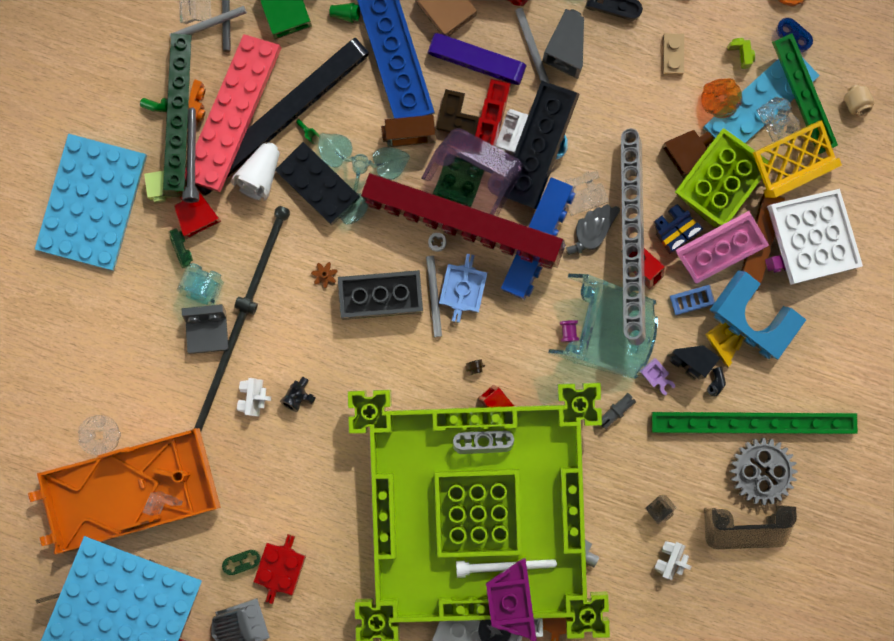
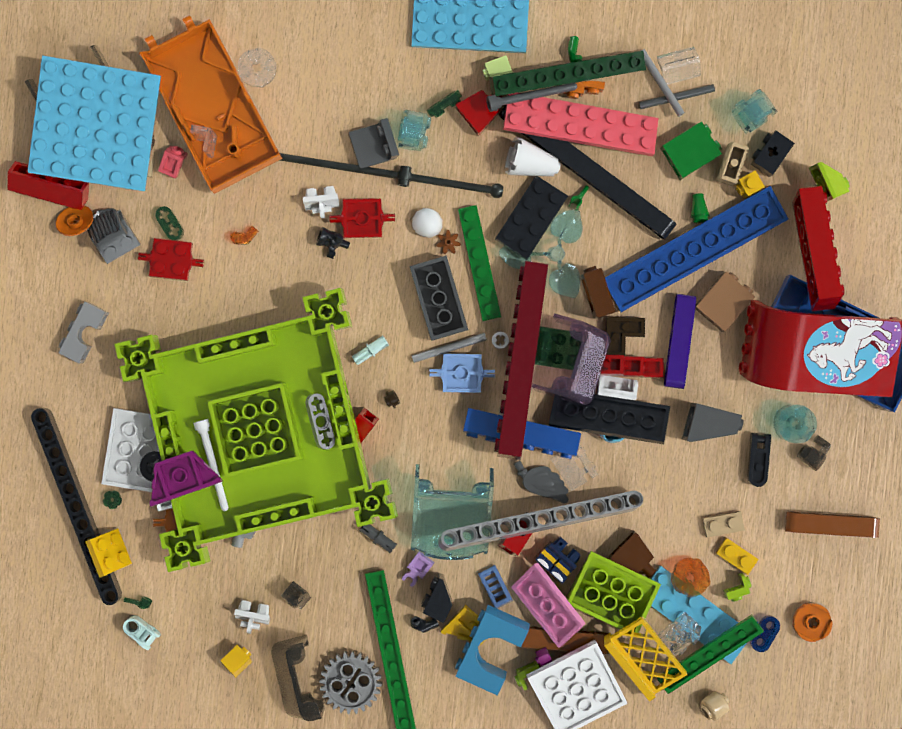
camera: 75 degrees right, 5 degrees up
(177, 545) = (172, 161): none -> coral bracket
(274, 486) = (244, 238): none -> clear orange arm
(280, 357) = (362, 218): none -> red plate
(299, 292) = (427, 222): none -> white hair
(353, 247) = (479, 263): none -> green plate
(419, 378) = (371, 349): none -> light aqua axle
(531, 45) = (703, 390): light grey bar -> none
(569, 330) = (442, 479): magenta bush -> none
(709, 47) = (736, 556): none -> yellow plate
(717, 586) = (237, 660): none -> yellow brick
(786, 288) = (523, 671): none -> lime bracket

